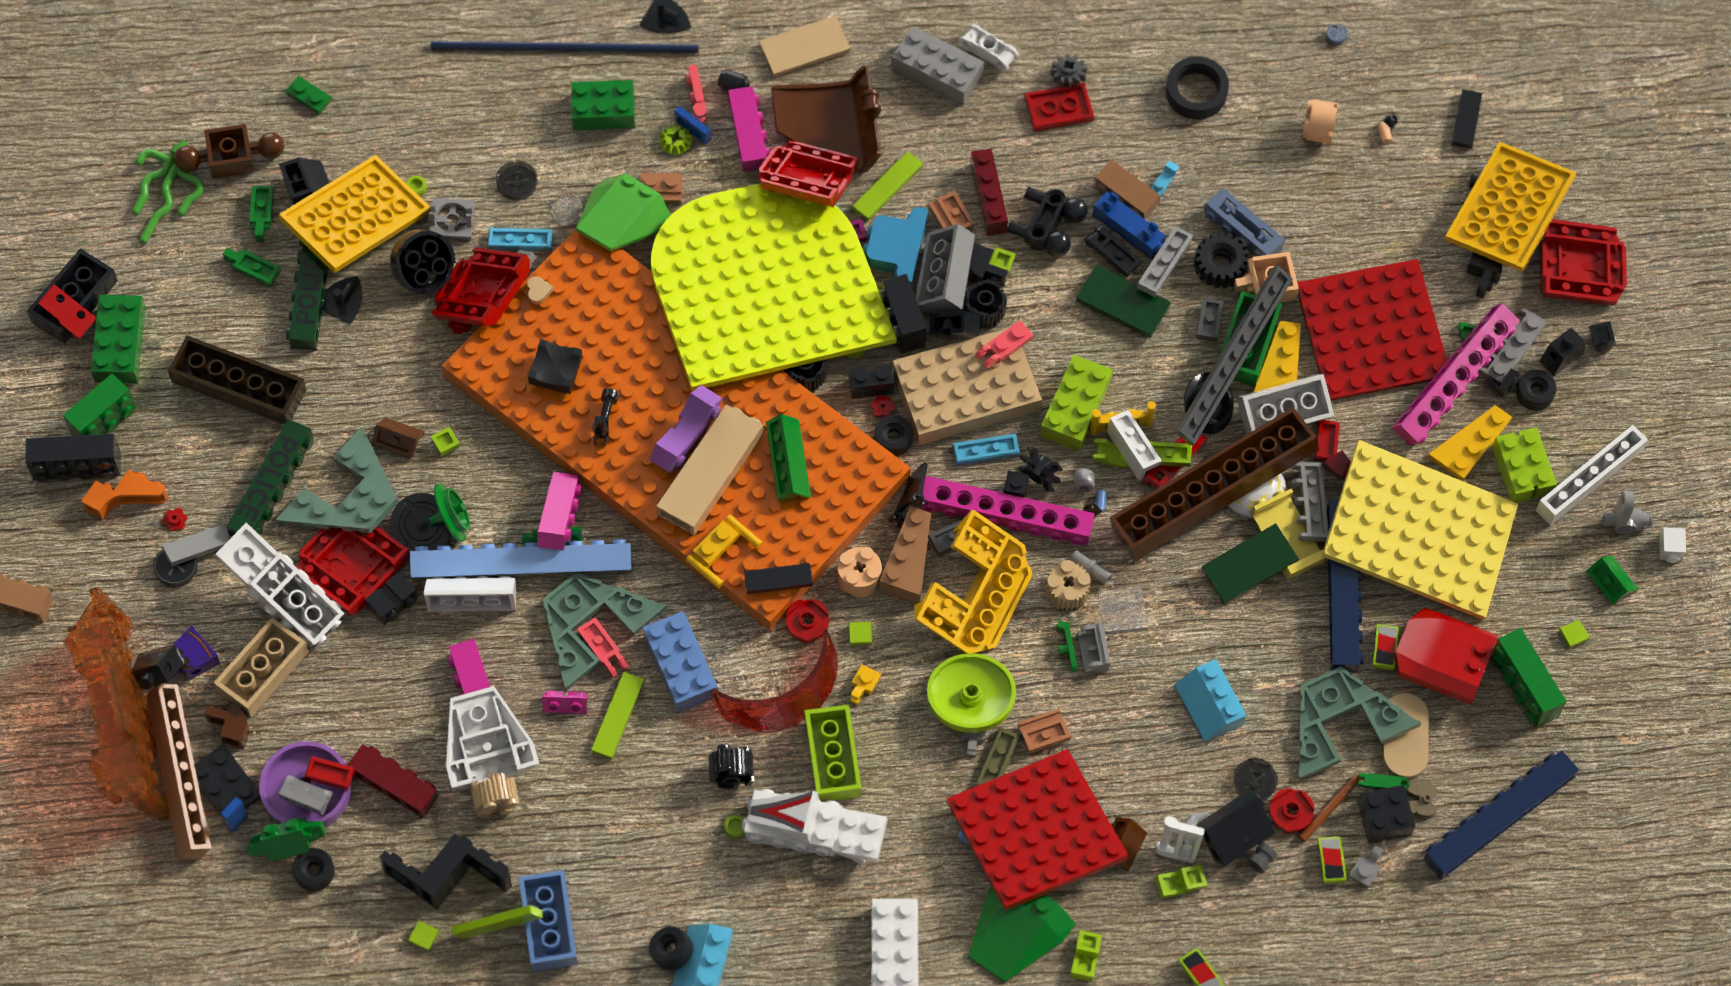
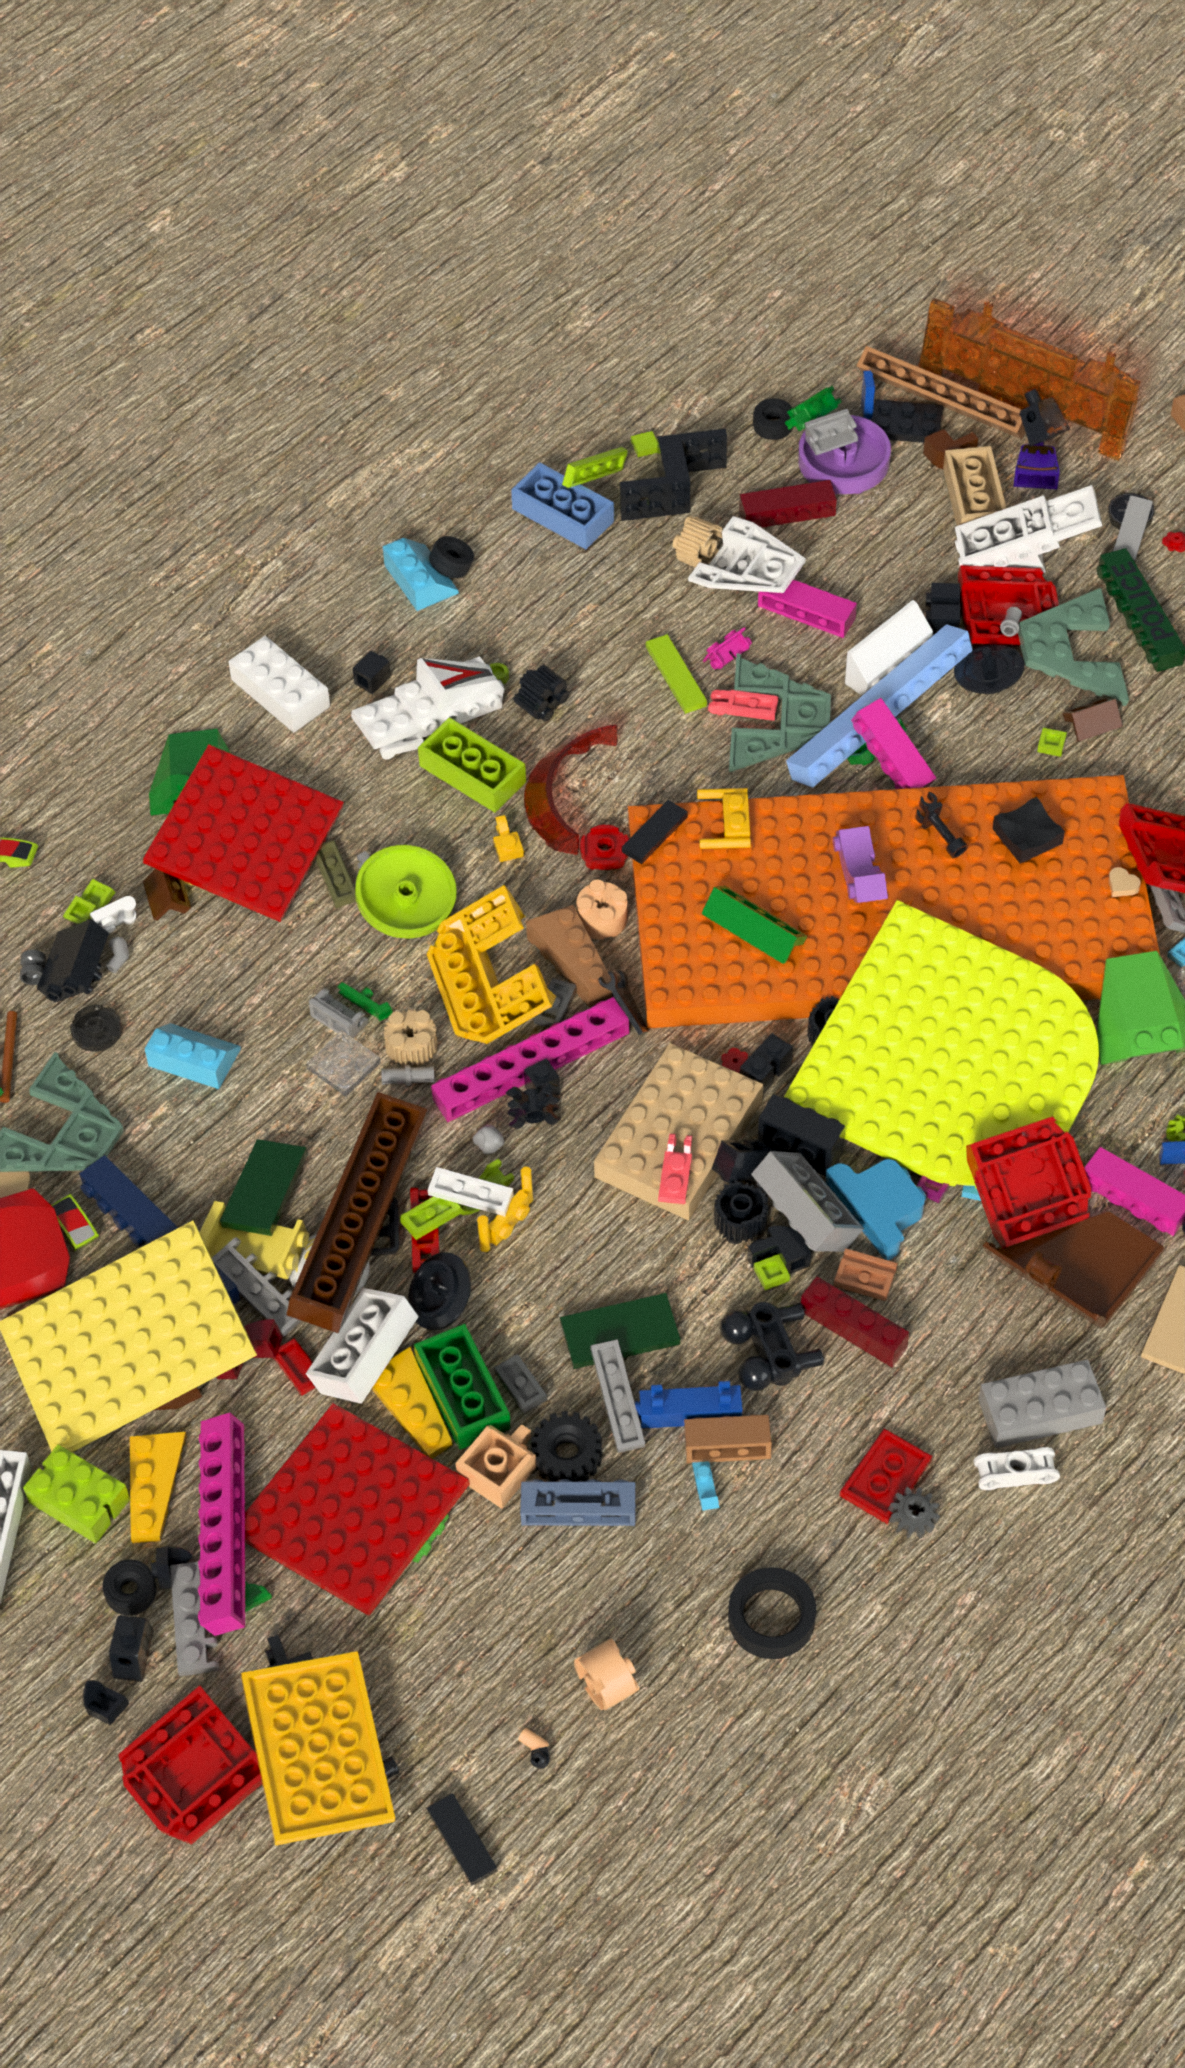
camera: 140 degrees right, 10 degrees down
(329, 773) = (833, 461): red tile -> none
(372, 534) = (1010, 625): none -> light grey pin
(451, 512) = (973, 679): green piece -> none
(666, 184) = (1145, 1081): nougat plate -> none
(680, 661) = (669, 737): medium blue brick -> none
(710, 469) = (806, 860): tan brick -> none
(820, 900) = (371, 672): none -> black brick
(860, 633) = (551, 875): lime tile -> none
(887, 186) = (954, 1255): lime tile -> none
(899, 425) = (702, 1029): black tyre -> none
(986, 449) = (605, 1101): medium azure tile -> none
(1044, 731) = (316, 920): nougat plate -> none
(1073, 404) = (566, 1198): lime brick -> none
(1086, 956) = (118, 796): lime slope -> none
(1099, 505) = (455, 1131): arm -> none
(1113, 251) = (680, 1371): black plate -> none
(1233, 355) = (452, 1334): dark grey plate -> none
(1287, 822) = (43, 1037): red plate -> none
(1336, 34) = (692, 1814): sand blue tile -> none

